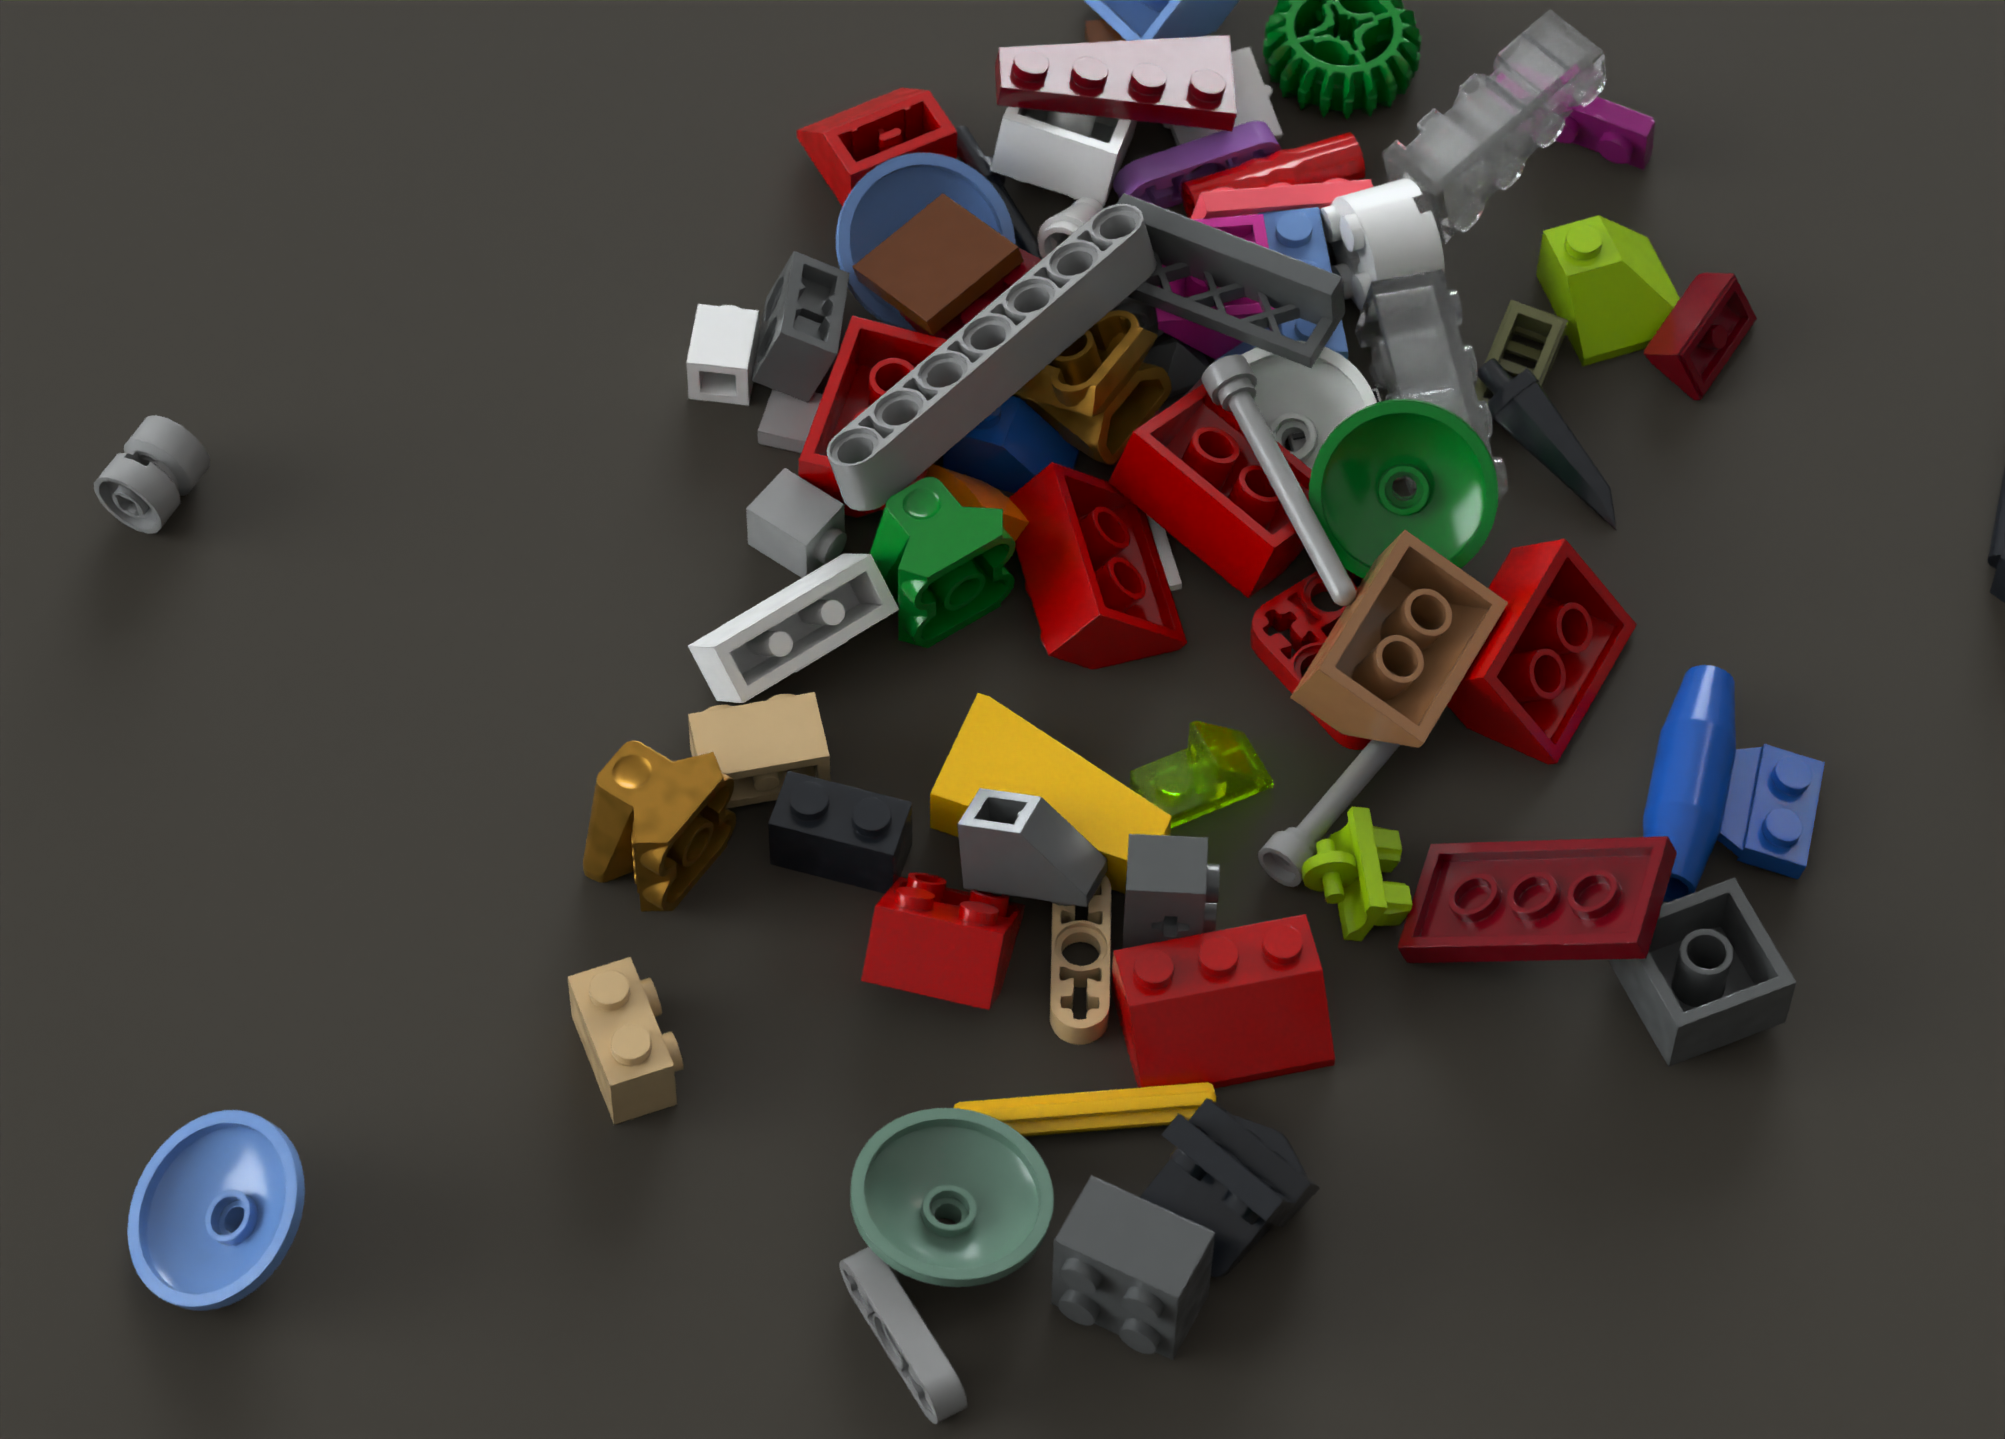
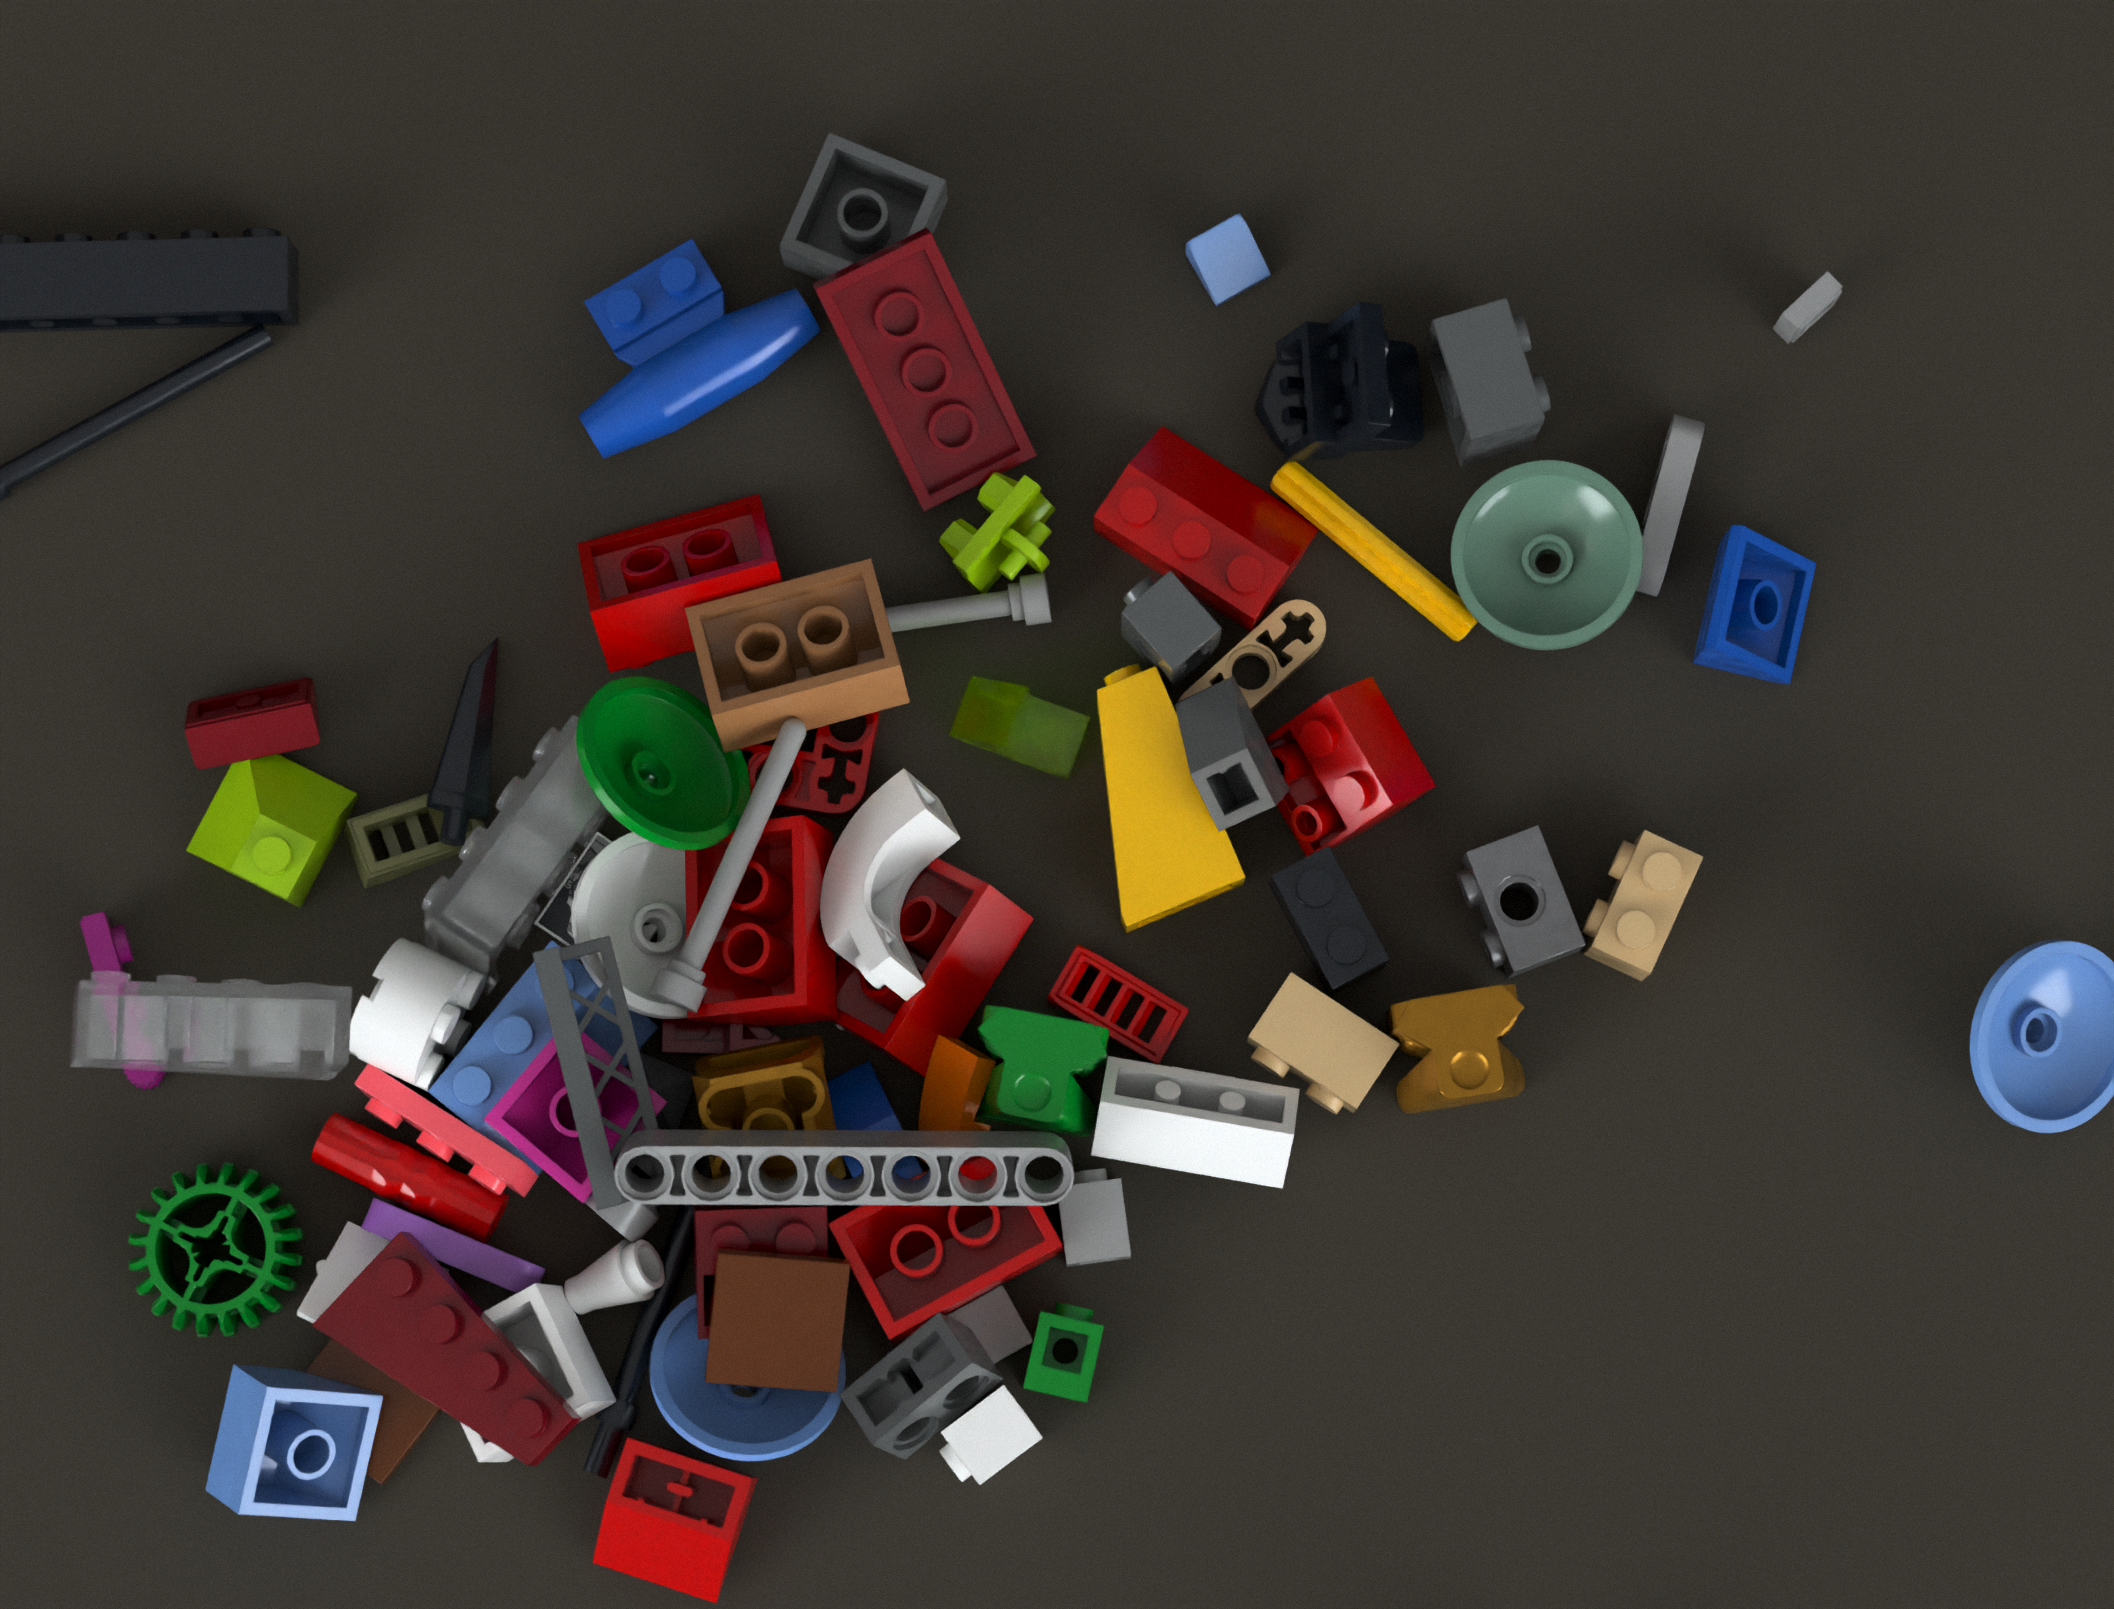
camera: 130 degrees left, 25 degrees up
(726, 432) = (1058, 1379): none -> green brick
(731, 997) = (1523, 864): none -> flat silver brick
(758, 1320) = (1754, 607): none -> blue slope
(944, 643) = (1107, 971): none -> red slope
(1182, 566) = (870, 874): none -> white arch
(1422, 1210) = (1227, 259): none -> medium blue slope

